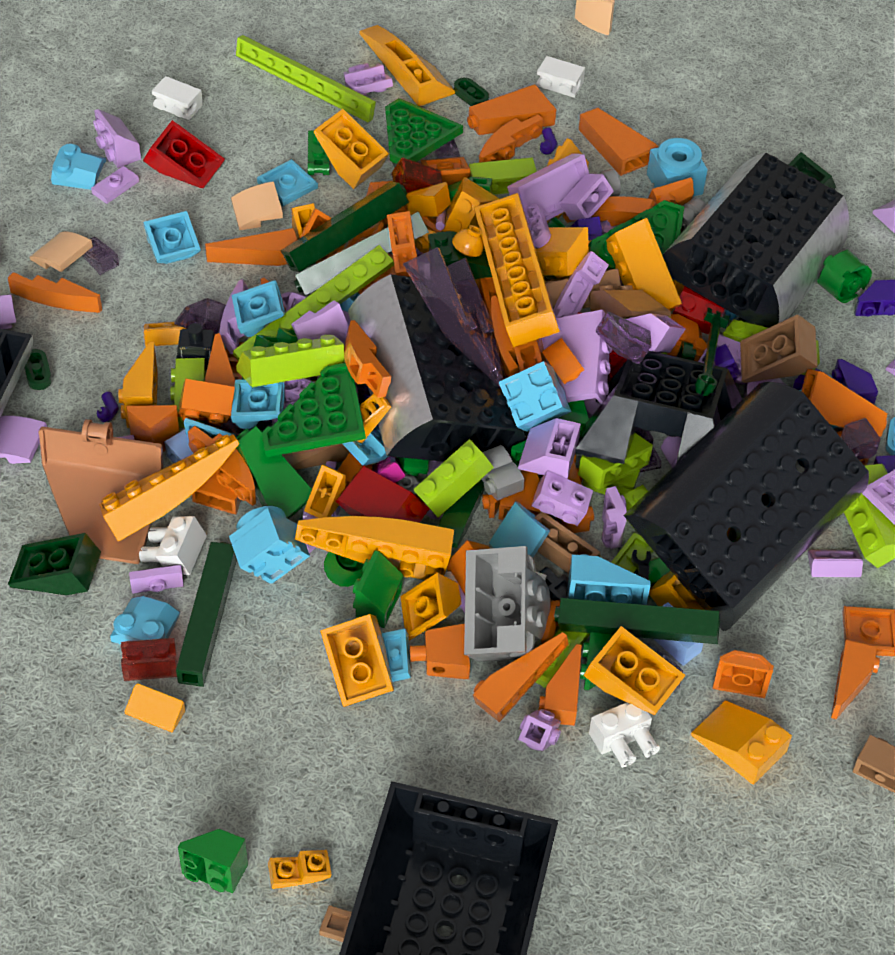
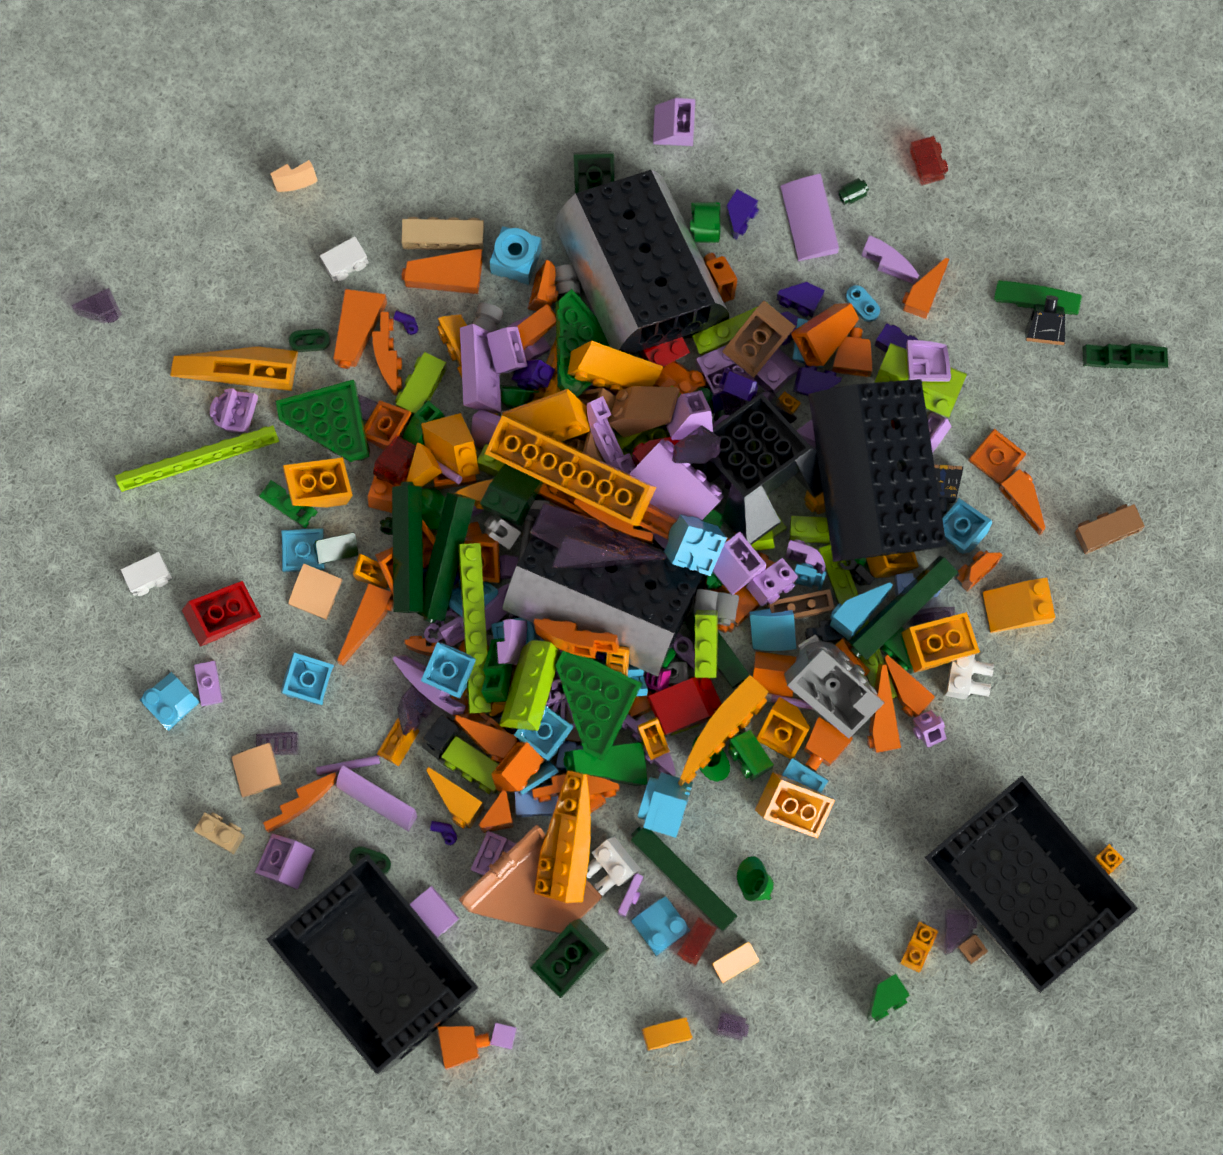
camera: 50 degrees left, 25 degrees up
(34, 690) = (666, 1033): none -> light orange slope
(78, 735) = (732, 1027): none -> clear purple slope
(99, 337) = (376, 798): none -> lavender slope
(115, 139) = (165, 653): lavender slope -> none
(119, 312) = (348, 764): none -> lavender bar
(252, 675) = (754, 880): none -> green piece
(304, 192) = (336, 548): none -> slope
(340, 889) = (958, 927): none -> clear purple slope
(401, 240) = (485, 533): orange slope -> none
(469, 241) = (514, 482): light orange brick -> none
(538, 225) = (525, 412): lavender beam -> none
(563, 361) = (676, 501): orange slope -> none
(596, 530) = (807, 576): none -> medium azure plate
(642, 115) = (442, 234): none -> tan brick
(706, 381) = (777, 425): dark green hinge -> none
(773, 638) = (965, 526): none -> medium azure slope
(796, 596) = (948, 484): none -> torso
(809, 306) = (722, 276): none -> orange torso
(861, 438) = (860, 348): slope -> none

